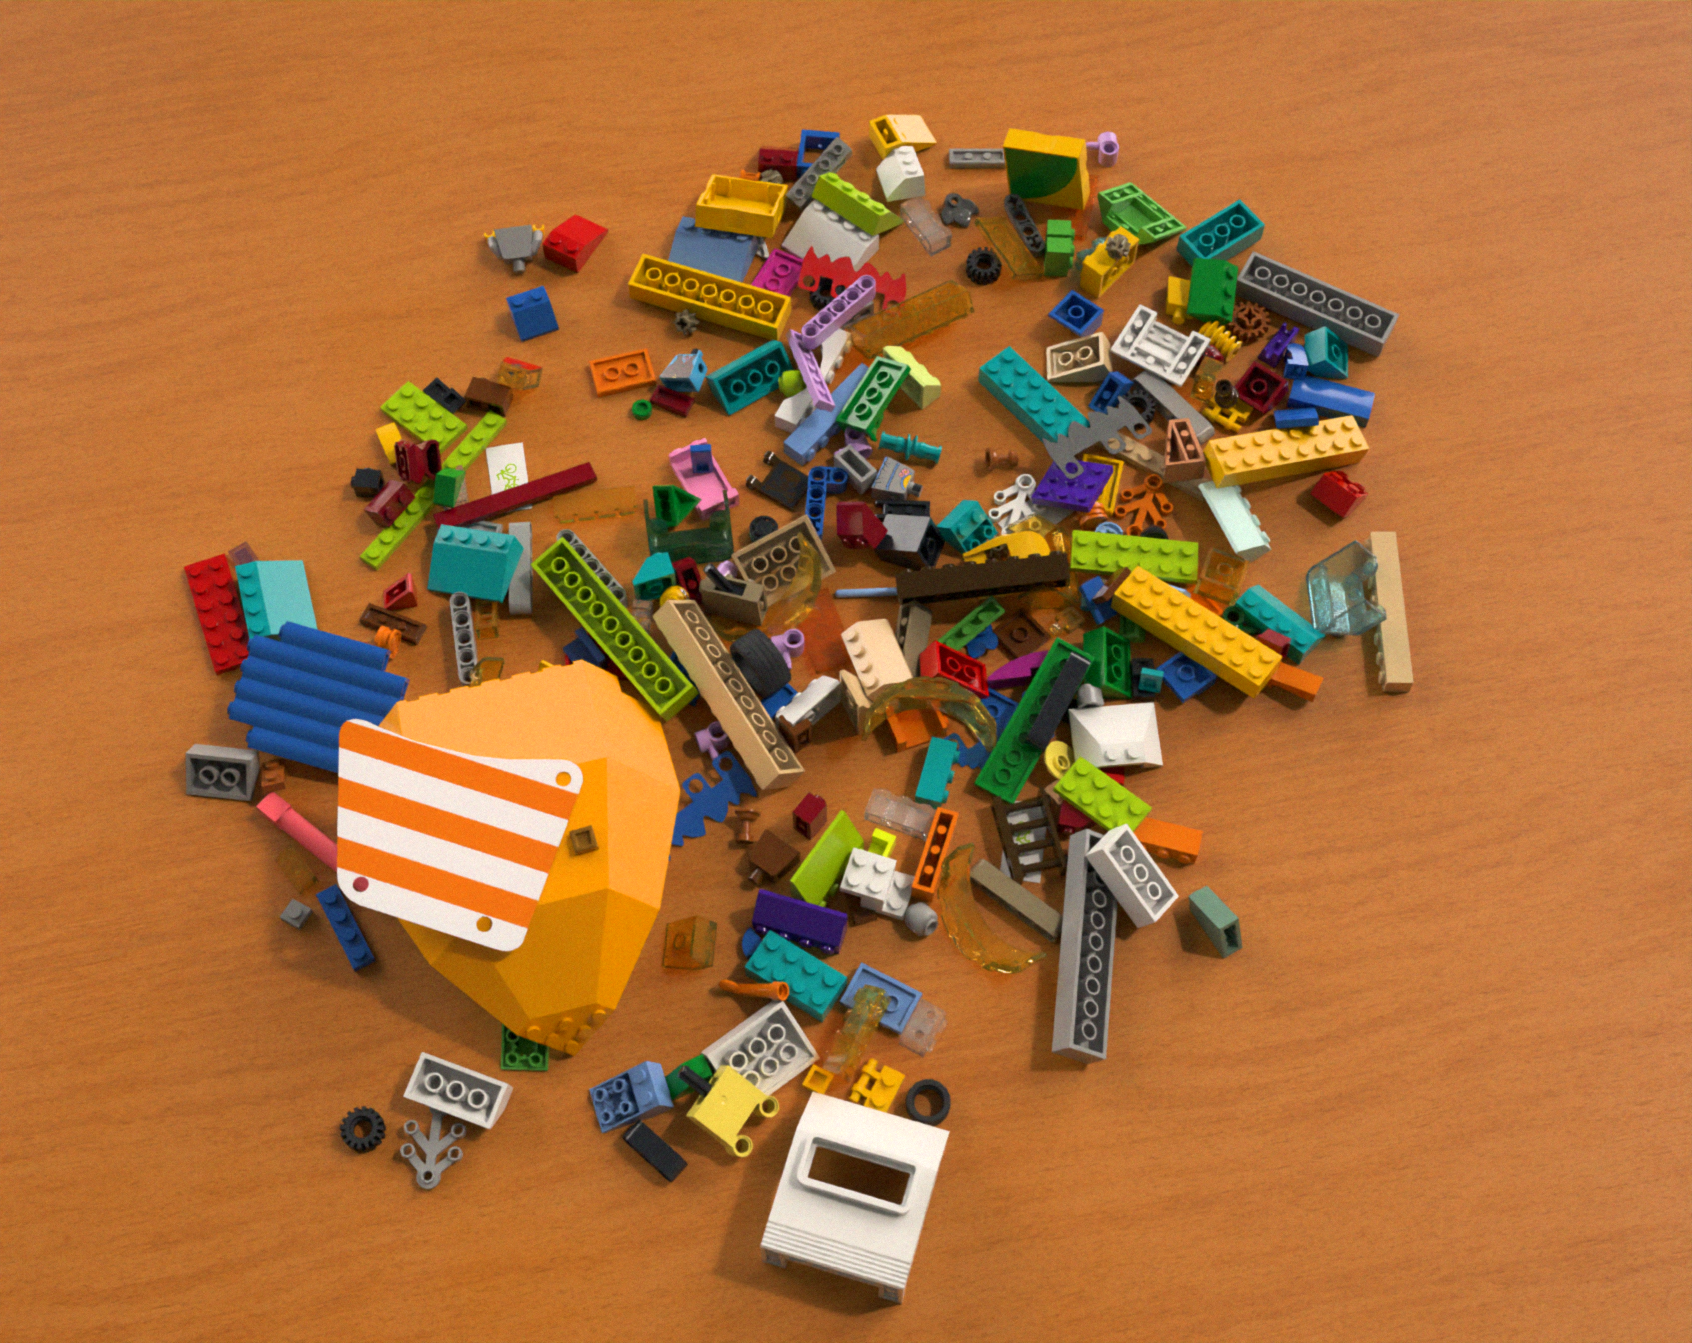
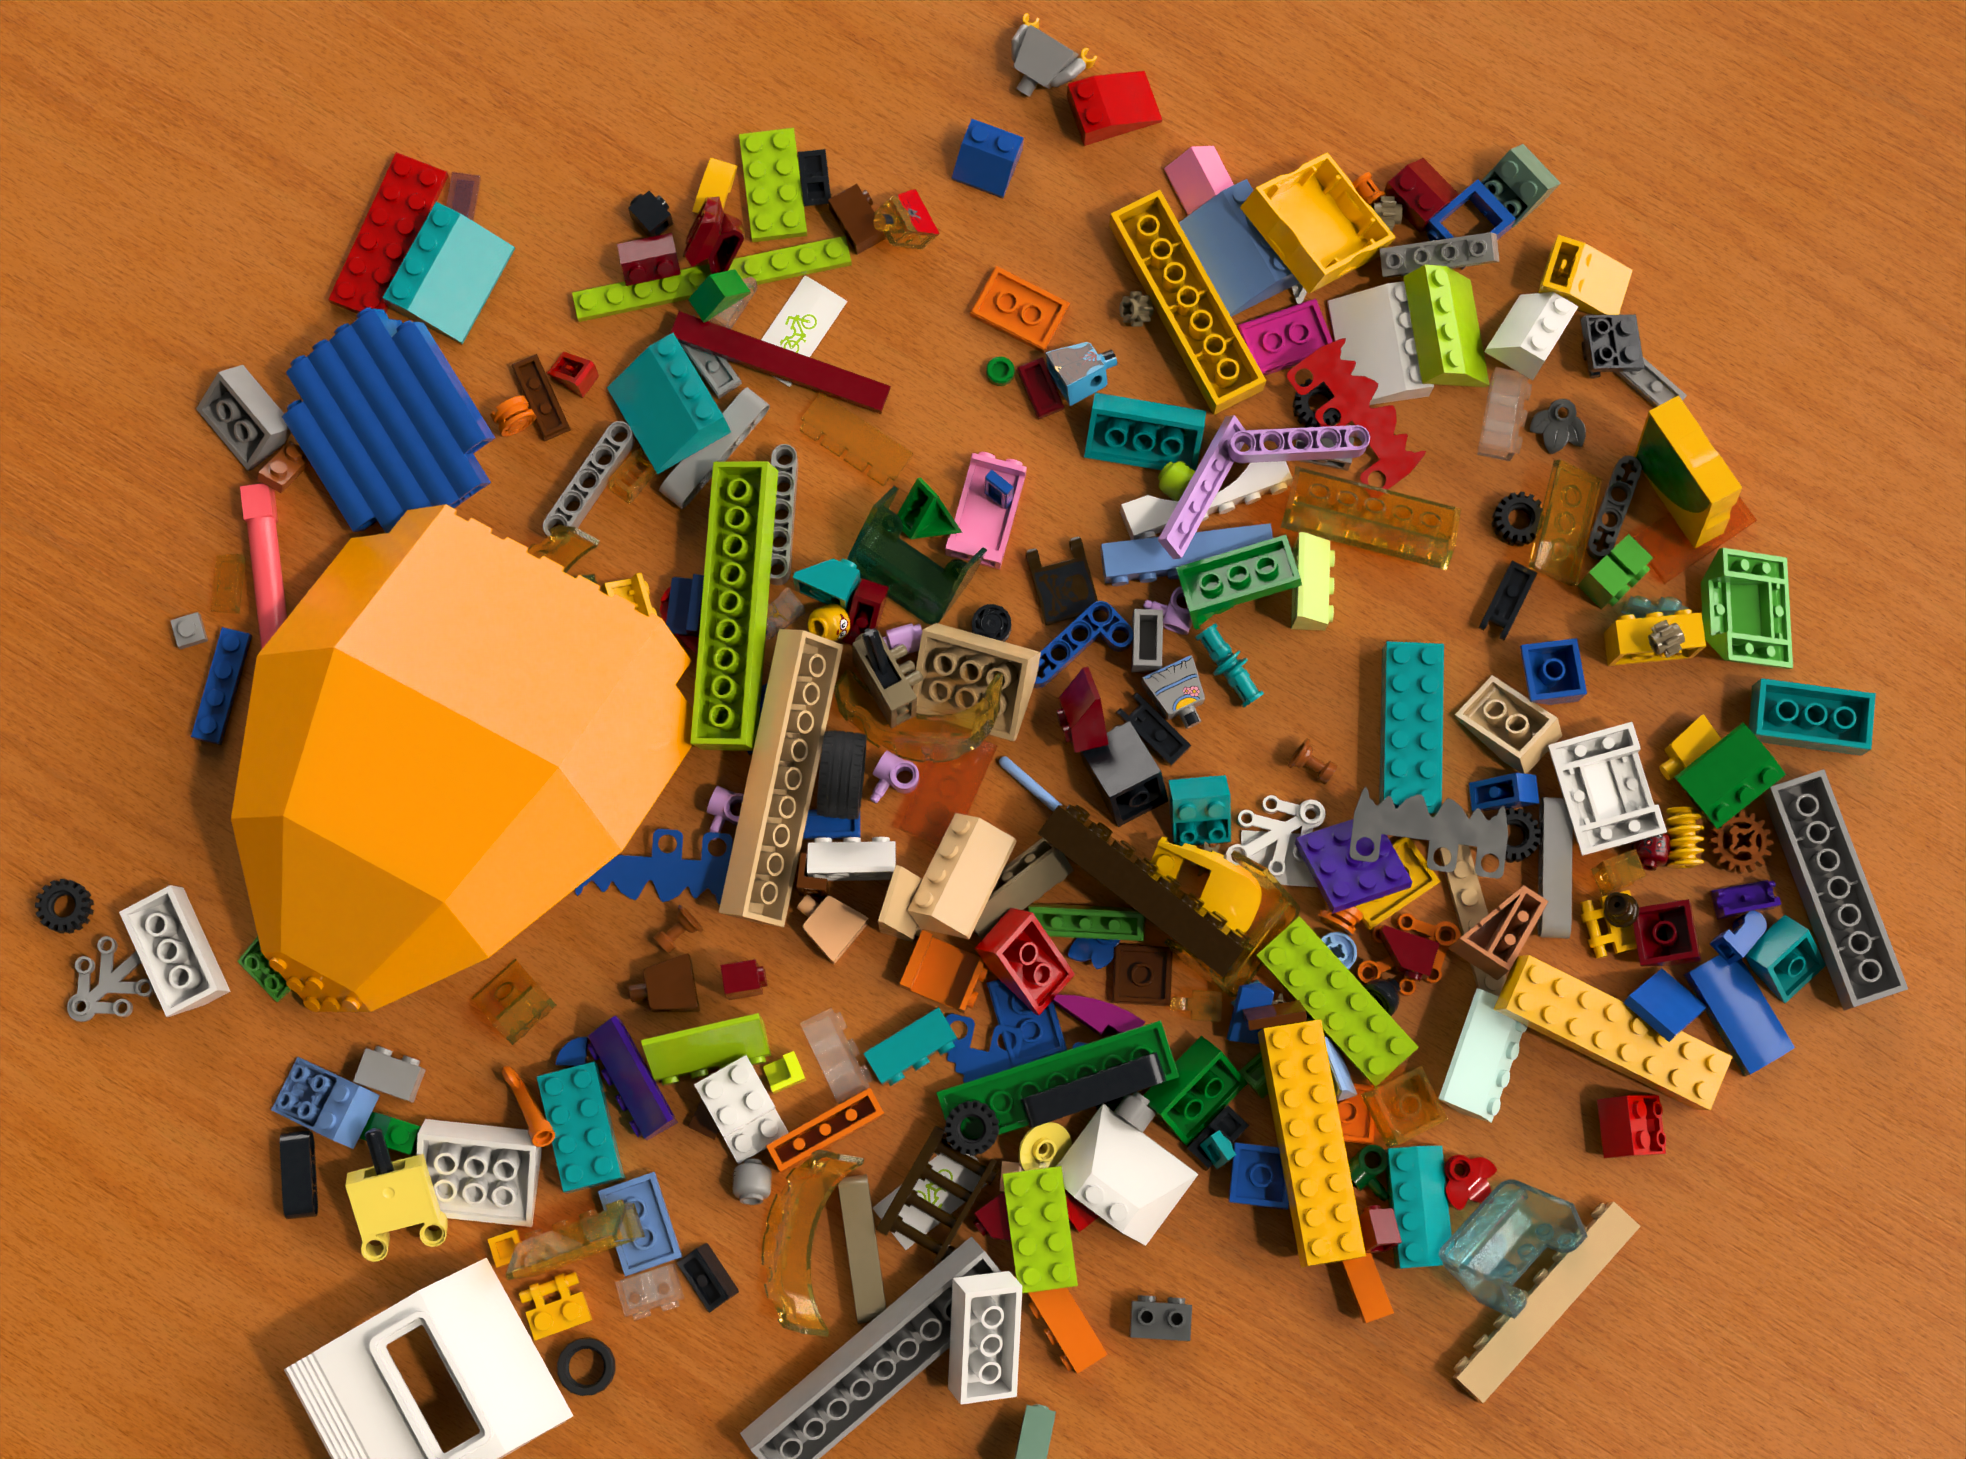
camera: 40 degrees right, 15 degrees up
(448, 832) = (344, 708): piece -> none
(583, 840) = (460, 833): pearl gold tile -> none
(653, 240) = (1197, 177): none -> bright pink slope
(656, 1045) = (390, 1074): none -> light grey brick
(824, 116) = (1520, 182): none -> sand green slope
(830, 750) = (831, 925): none -> light nougat torso
(937, 695) = (976, 966): clear yellow windscreen -> none
(944, 153) = (1611, 344): none -> black plate
(947, 994) = (708, 1277): none -> black slope
(1015, 768) = (959, 1141): none -> black tyre
(1017, 304) = (1509, 597): none -> black hinge
(1107, 148) = (1804, 488): lavender piece -> none
(1144, 503) = (1409, 952): none -> dark red slope
(1210, 793) = (1160, 1320): none -> dark grey brick
(1291, 590) = (1472, 1182): none -> red plate

